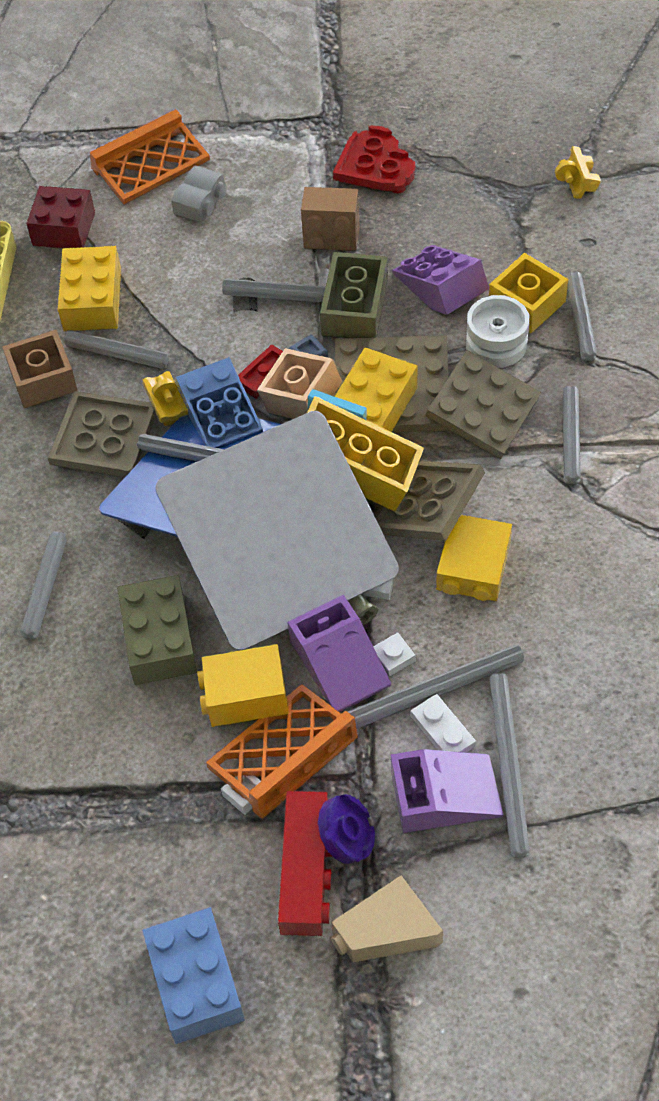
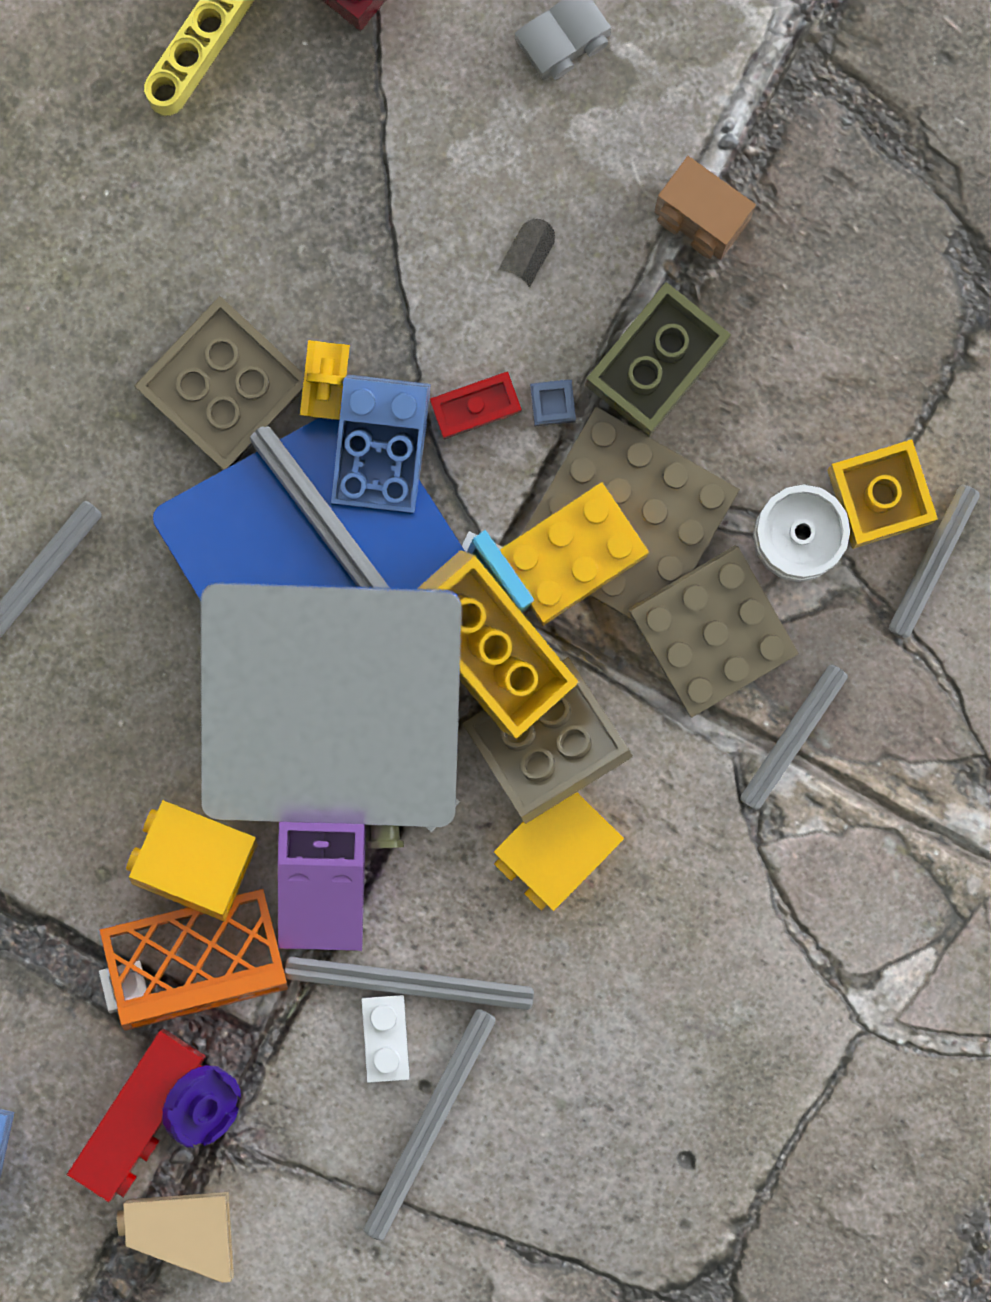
camera: 30 degrees right, 30 degrees up
(40, 368) = (191, 236): medium nougat brick -> none
(89, 288) = (326, 125): yellow brick -> none
(116, 349) = (311, 248): light grey axle -> none
(156, 630) = (136, 722): olive brick -> none
(273, 290) = (567, 274): light grey axle -> none
(293, 378) = (498, 471): light nougat brick -> none
(375, 161) = (838, 117): red plate -> none
(394, 654) = (389, 911): white plate -> none
(443, 278) = (794, 388): medium lavender slope -> none
(443, 788) = (337, 1120): slope -> none

